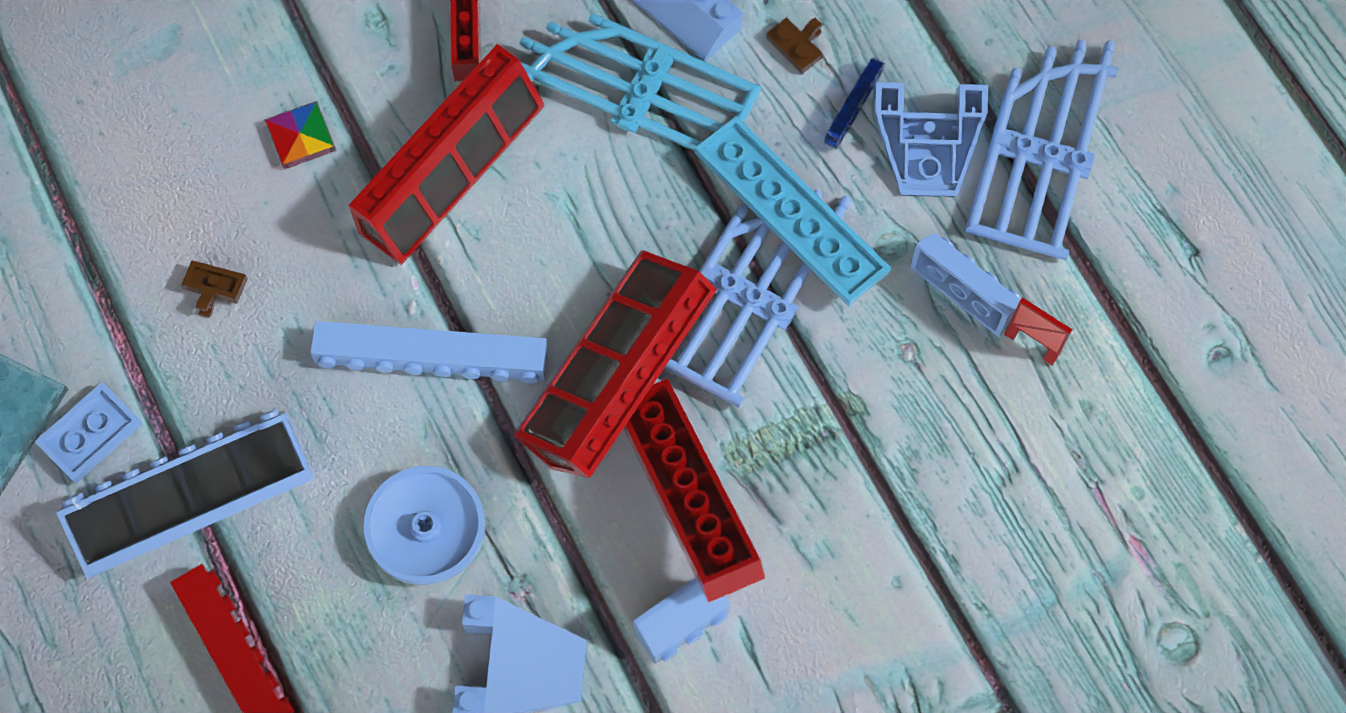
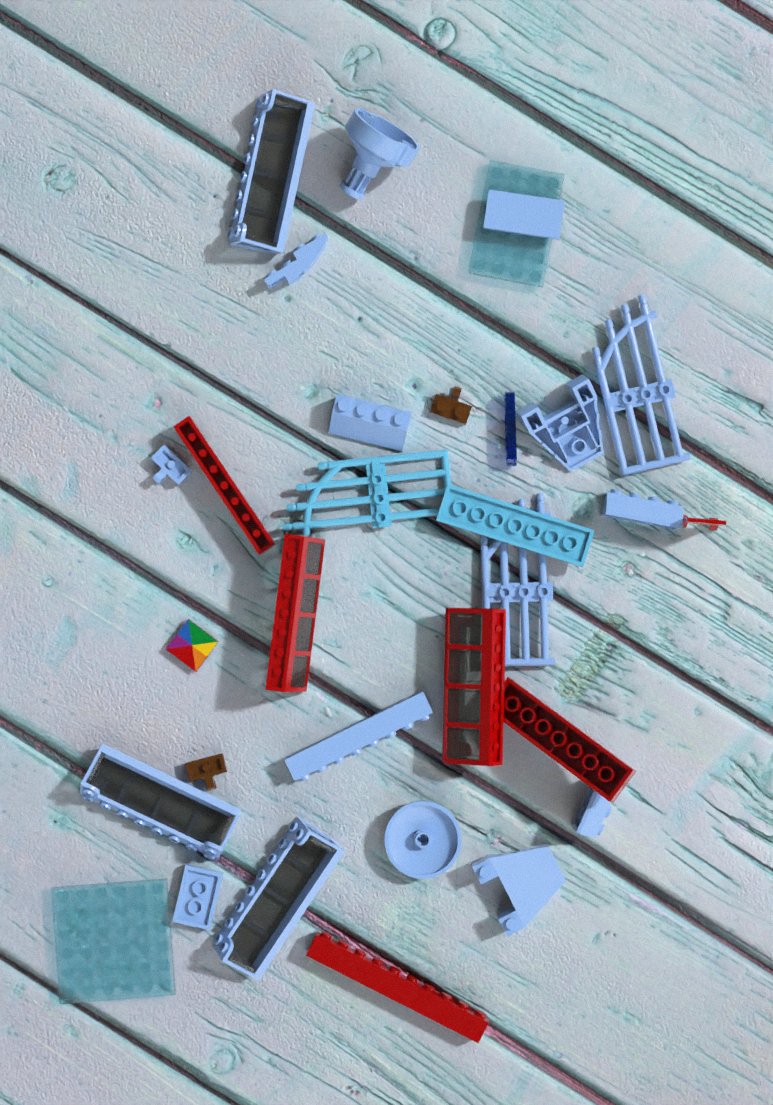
camera: 30 degrees left, 20 degrees up
(127, 288) = (159, 802): none -> window

